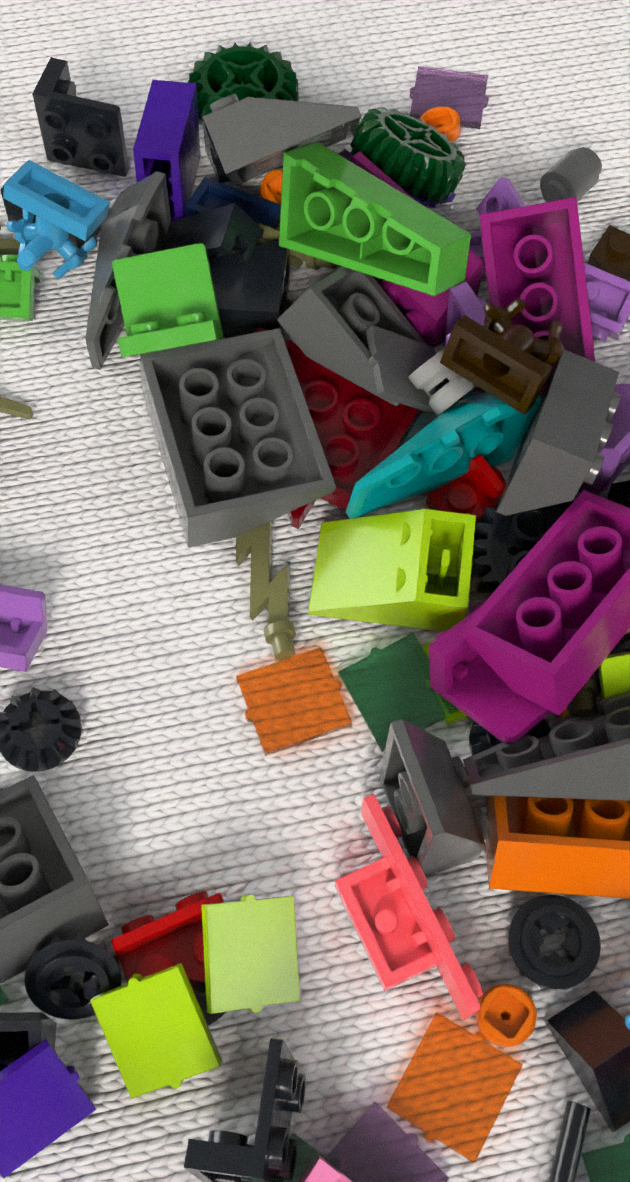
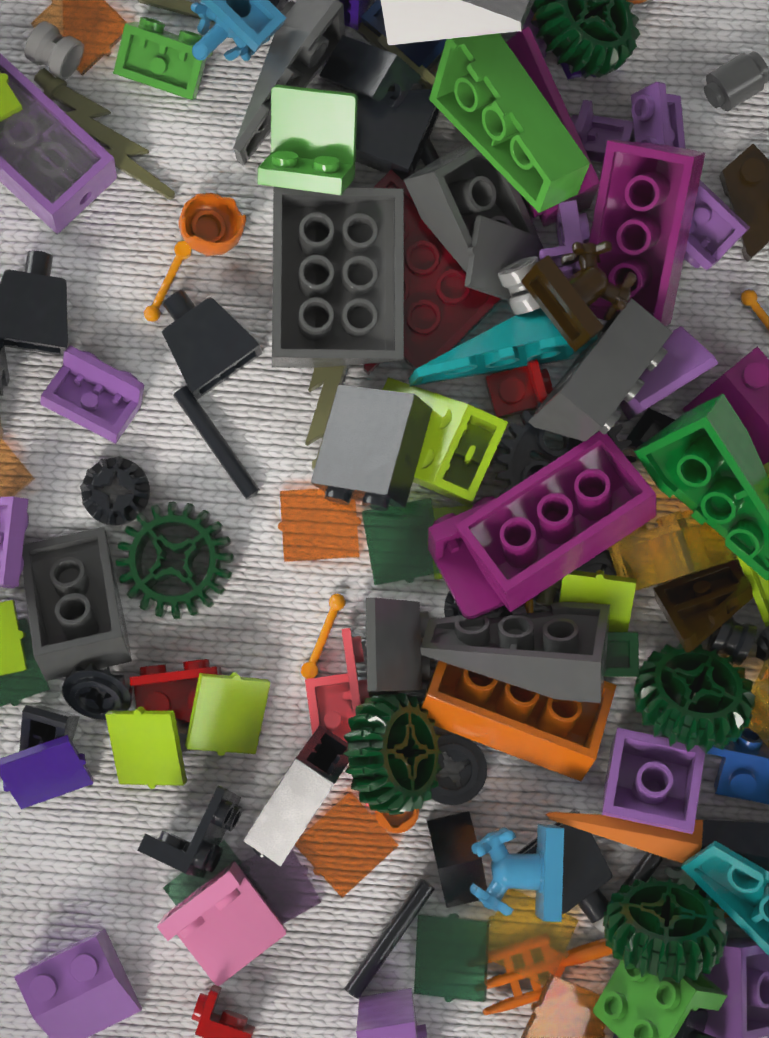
camera: 20 degrees right, 20 degrees up
(55, 462) = (182, 251): none -> light orange hinge
(80, 422) = (211, 224): none -> orange hair
(108, 538) = (206, 342): none -> black torso
(119, 804) = (158, 573): none -> dark green gear
(147, 644) = (216, 442): none -> black bar
(330, 586) = (371, 447): none -> brick
(335, 870) = (310, 669): none -> light orange hinge
(380, 1029) = (298, 796): none -> brick
(481, 931) = (392, 753): none -> dark green gear

